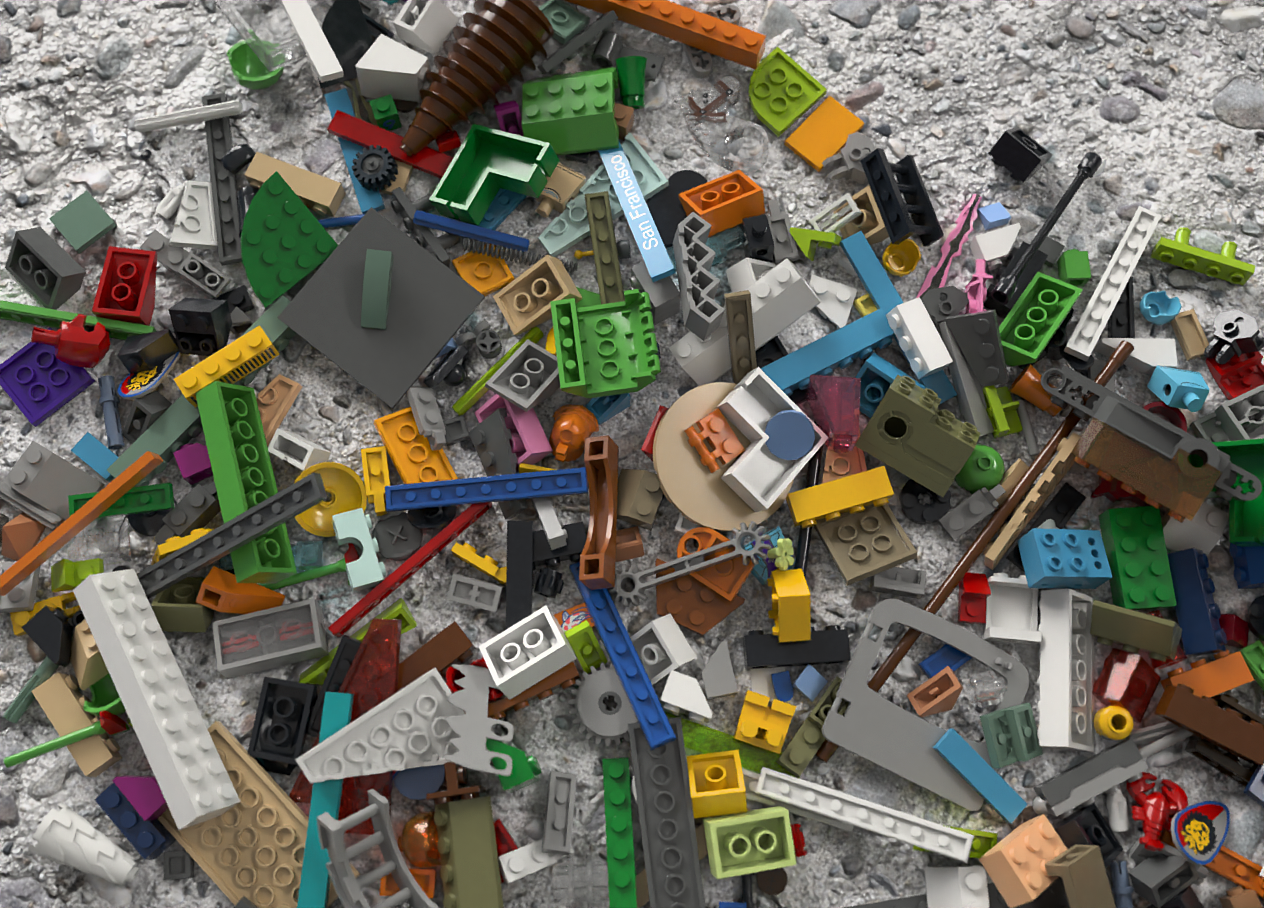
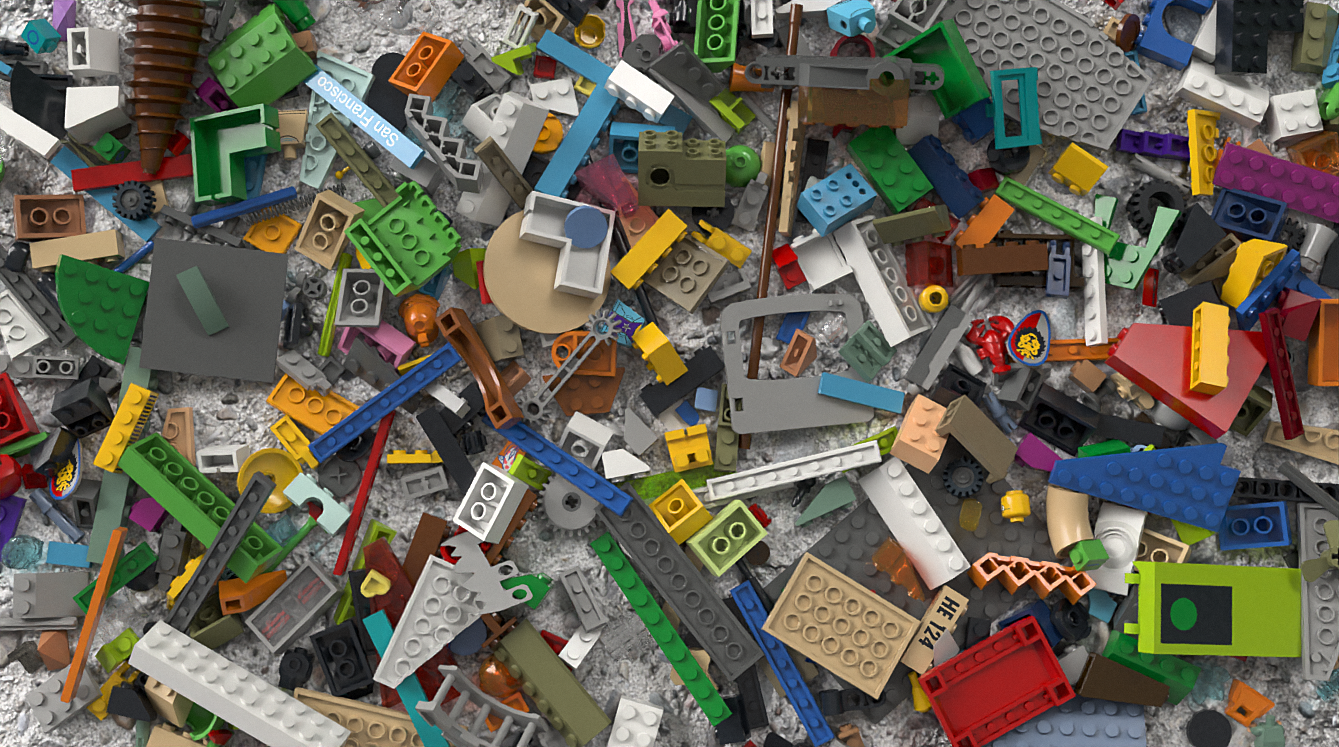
camera: 35 degrees left, 10 degrees up
(55, 426) = (21, 552): none -> clear light blue hair
(113, 366) = (32, 479): none -> red slope
(230, 701) = (295, 668): none -> black hand
(289, 139) = (48, 217): none -> nougat slope
(361, 663) = (375, 584): none -> light yellow tile
(646, 406) = (465, 265): none -> lime slope
(719, 436) = (535, 259): orange plate -> none
(782, 553) = (632, 319): yellowish green plant -> none
(802, 331) = (550, 136): none -> light orange tile
(836, 267) = (545, 67): none -> red tile
(862, 839) = (803, 486): none -> black bar
(882, 867) = (830, 496): none -> sand green slope
(920, 536) = (723, 244): none -> yellow hinge

